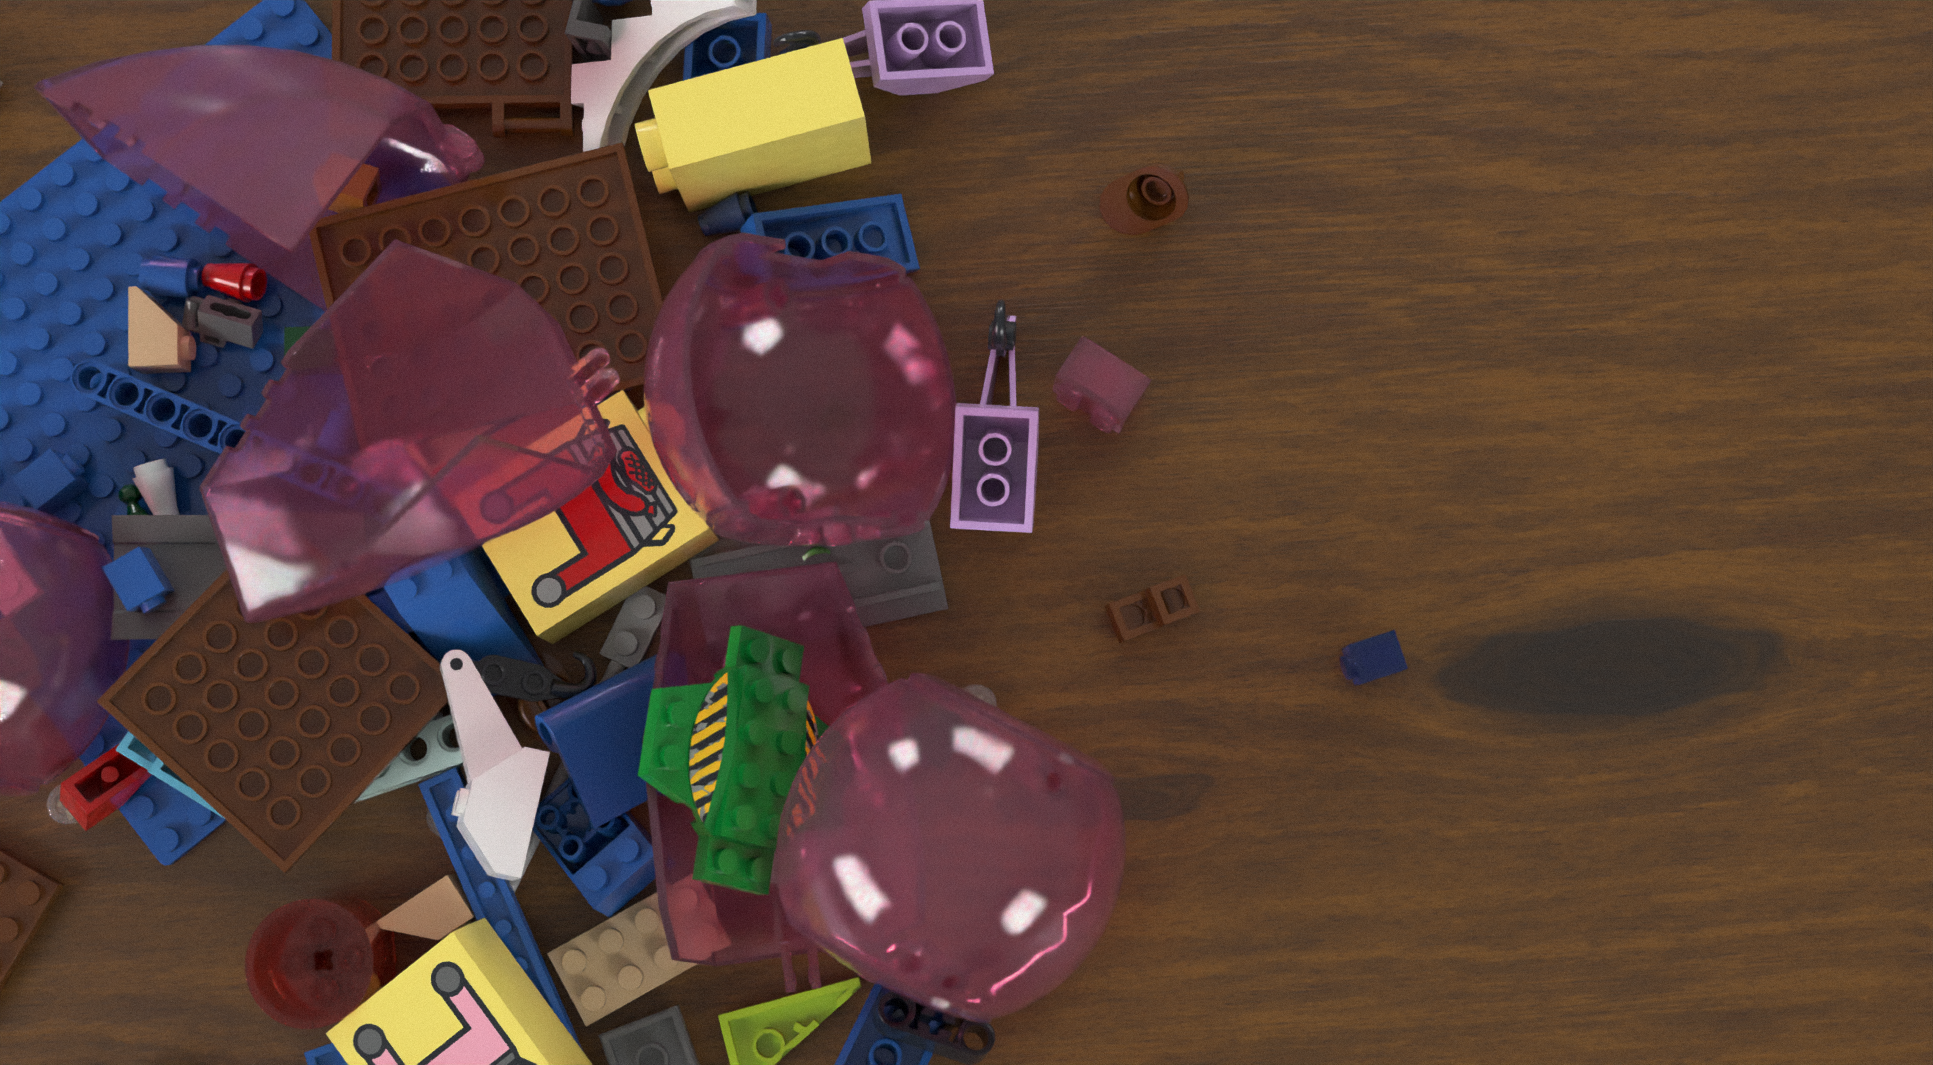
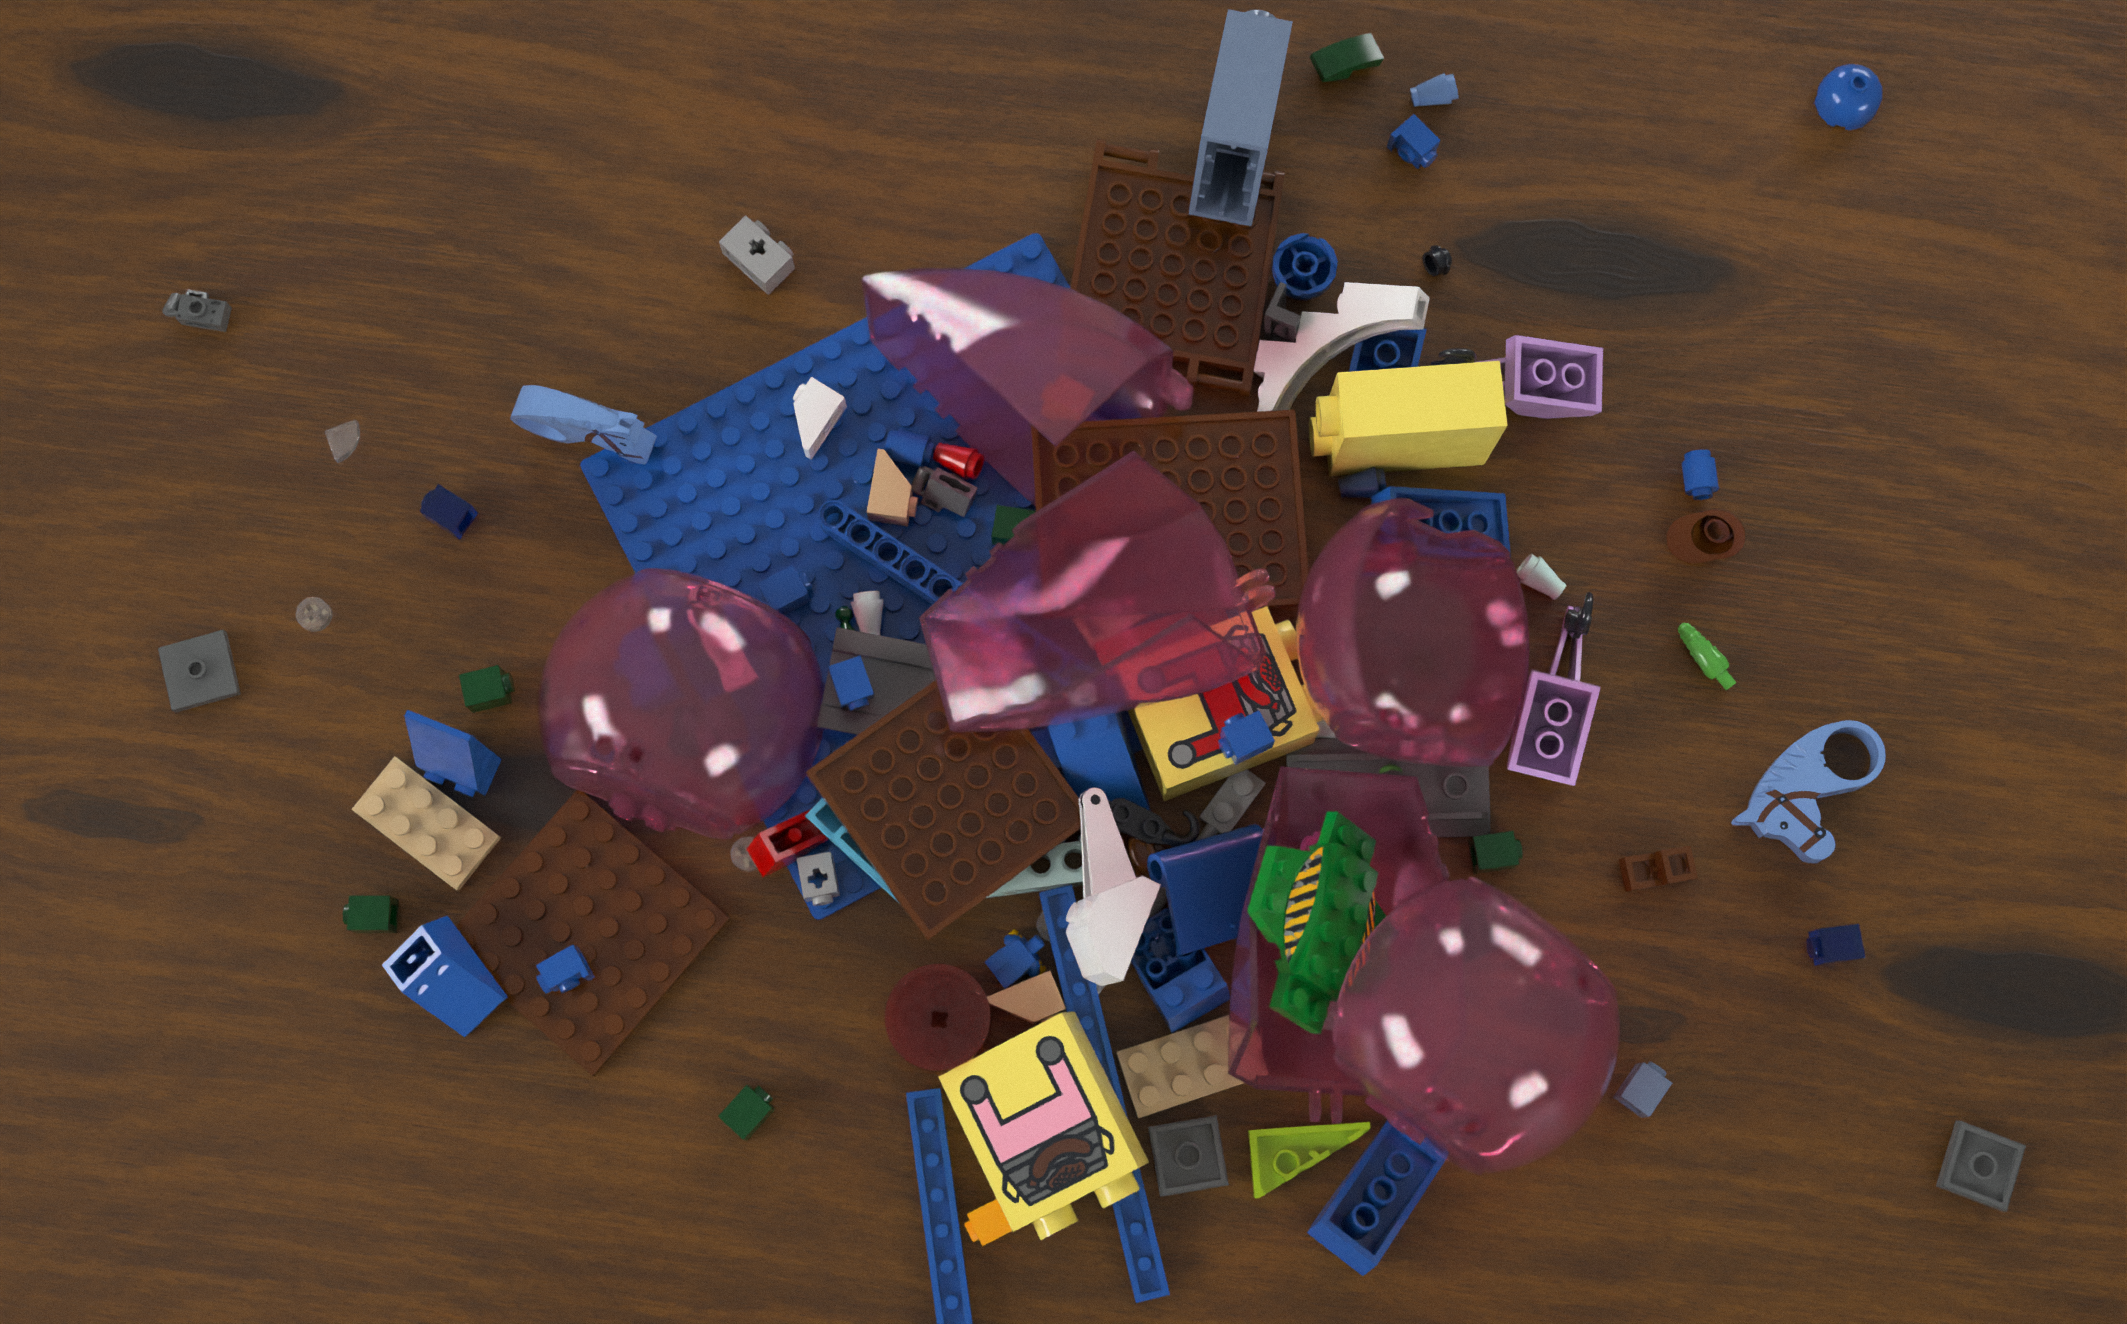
camera: 10 degrees right, 5 degrees down
(51, 259) = (816, 413): none -> white slope
(141, 808) = (823, 864): none -> light grey brick
(407, 868) = (1016, 959): none -> blue piece
(616, 556) = (1245, 737): none -> blue brick
(920, 1035) = (1427, 1174): black beam -> none
(955, 627) = (1494, 852): none -> dark green brick
(957, 286) = (1539, 576): none -> light aqua cone
(1100, 386) = (1648, 679): clear pink brick -> none
(1127, 126) = (1700, 474): none -> blue brick
(1169, 343) = (1706, 655): none -> bright green piece
(1174, 873) = (1643, 1089): none -> sand blue brick
(1287, 493) = (1786, 795): none -> medium blue animal
(1582, 885) = (1981, 1166): none -> dark grey plate

